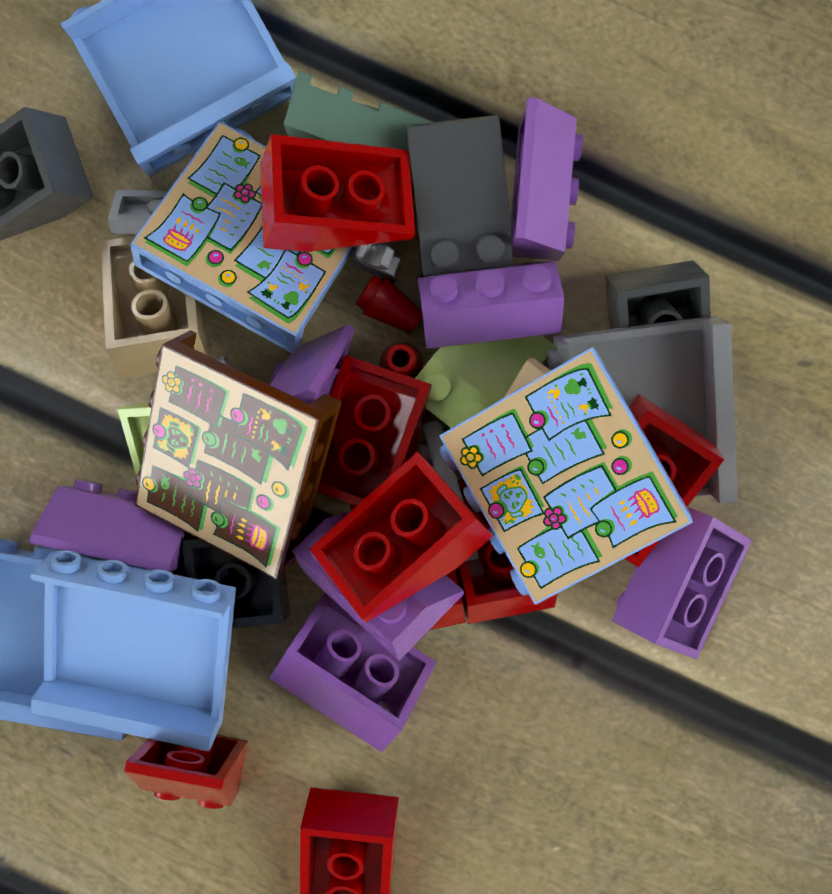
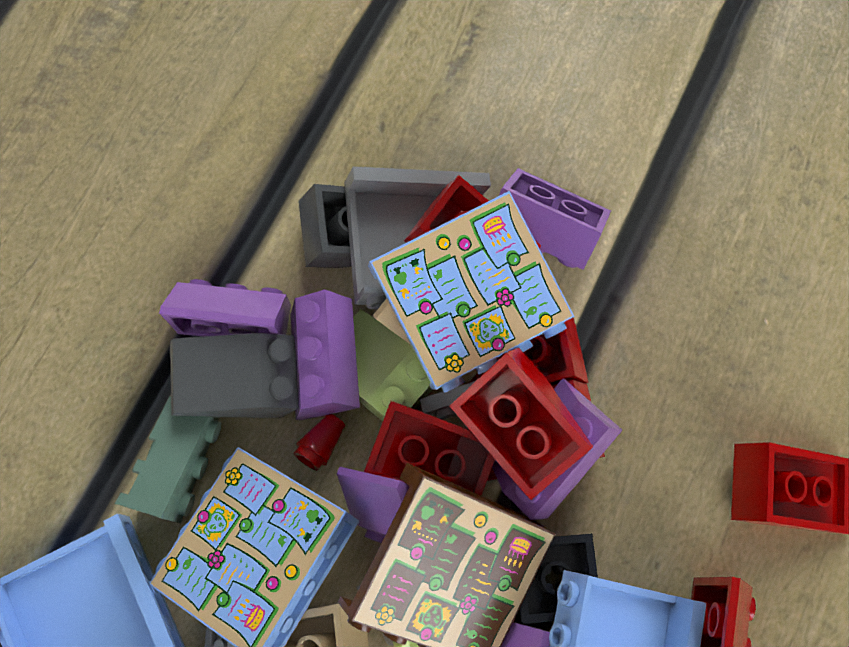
camera: 95 degrees left, 15 degrees down
(333, 194) = (225, 478): red slope -> none
(351, 675) = (633, 481): medium lavender slope -> none
(377, 260) = (281, 449): light grey plate -> none
(415, 363) = (363, 441): red cone -> none

